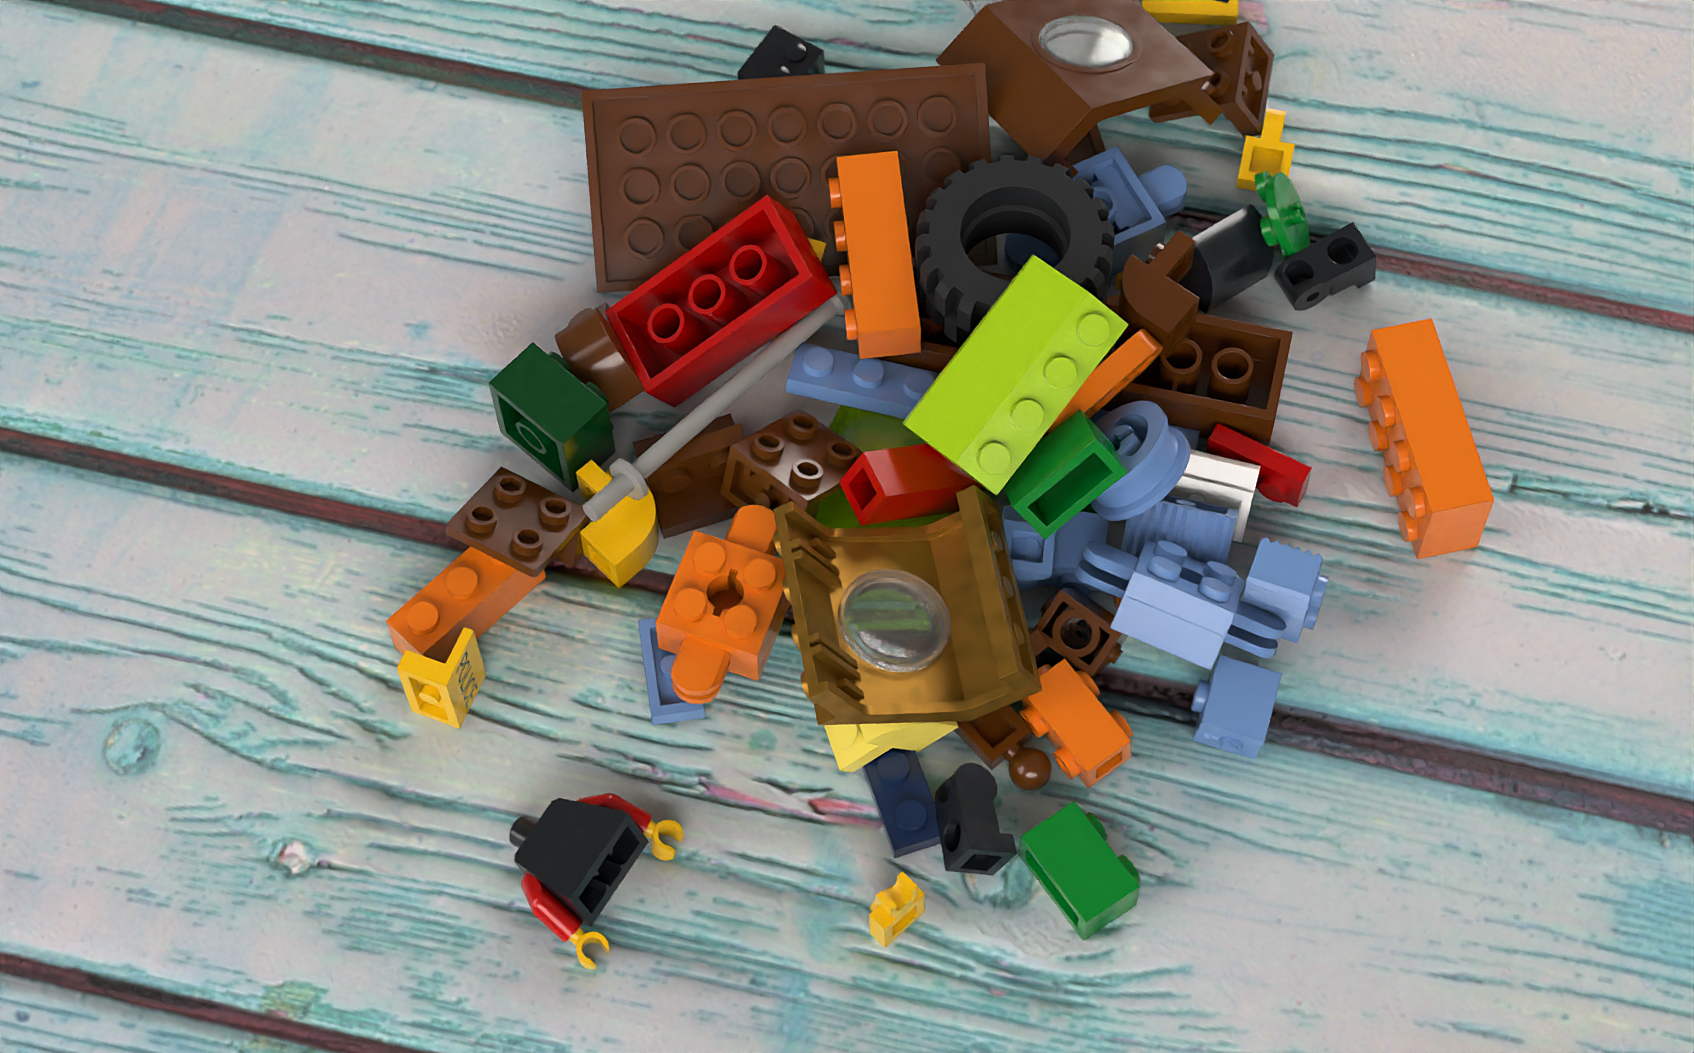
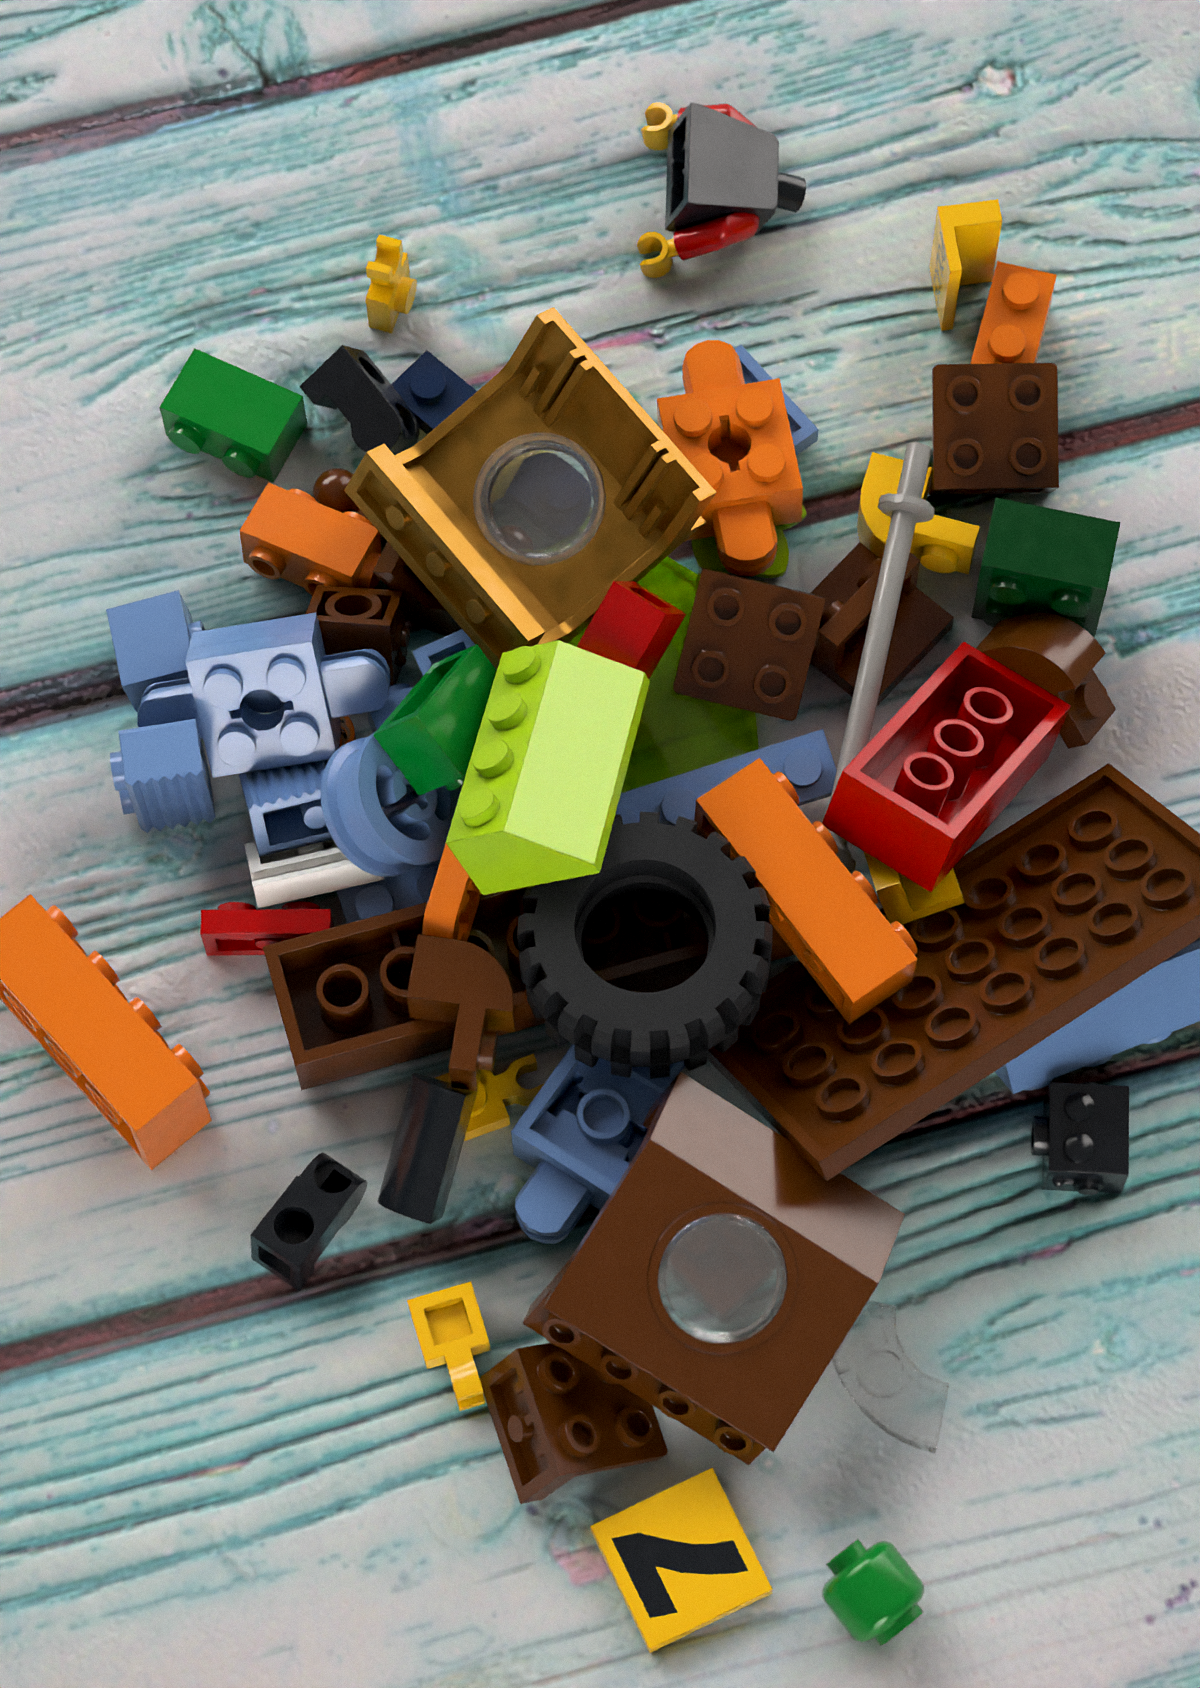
camera: 150 degrees right, 5 degrees up
(1286, 216) = (385, 1244): green piece -> none

